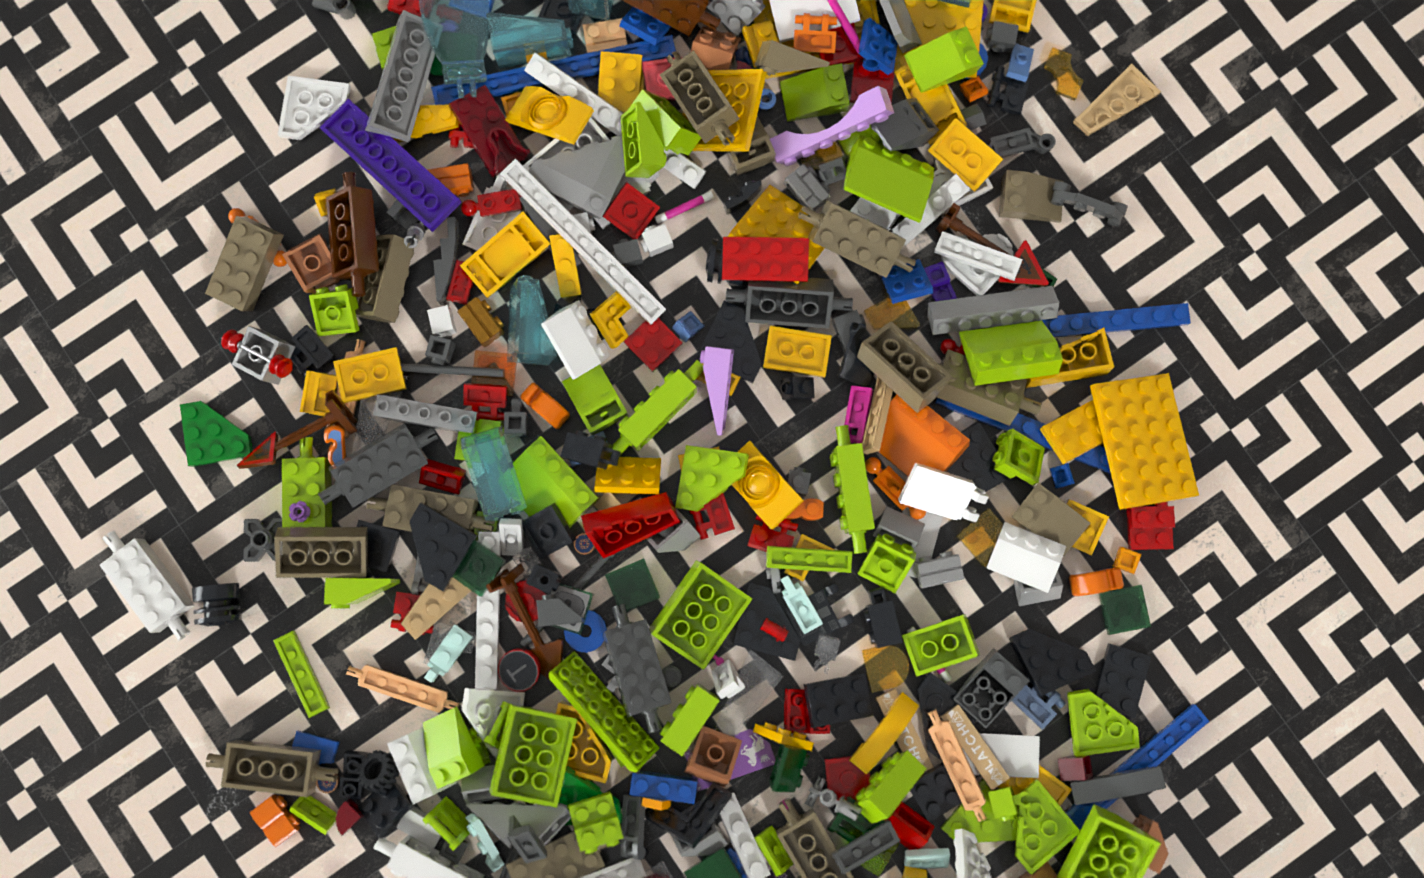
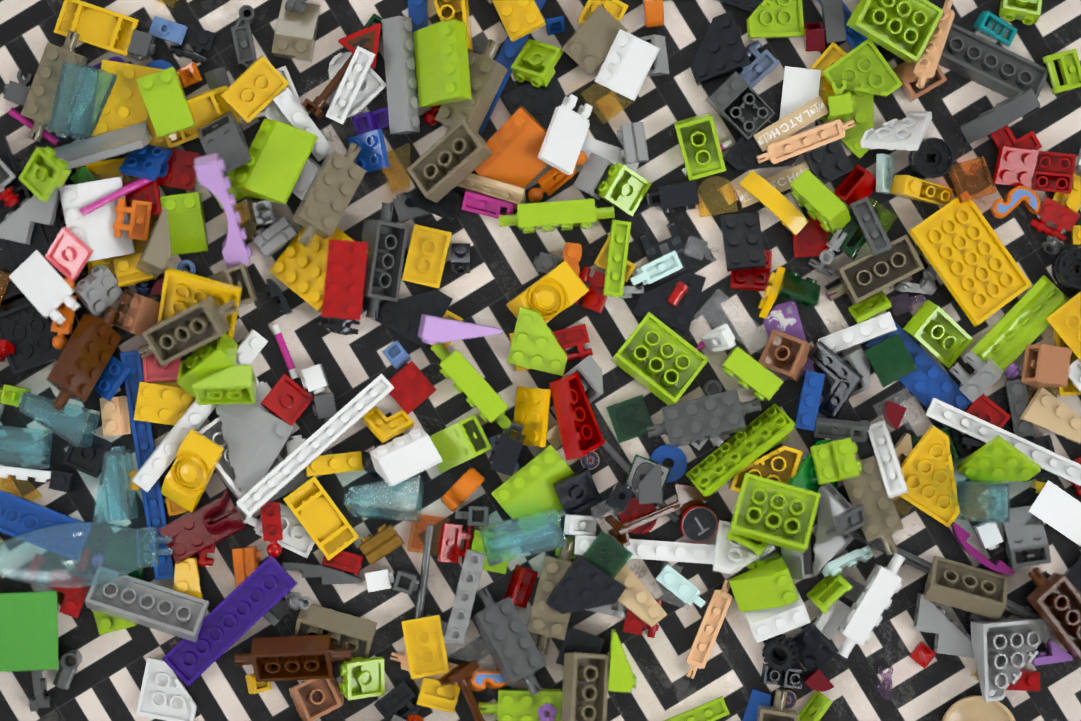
camera: 85 degrees left, 5 degrees up
(658, 804) = (823, 406): light orange tile -> none

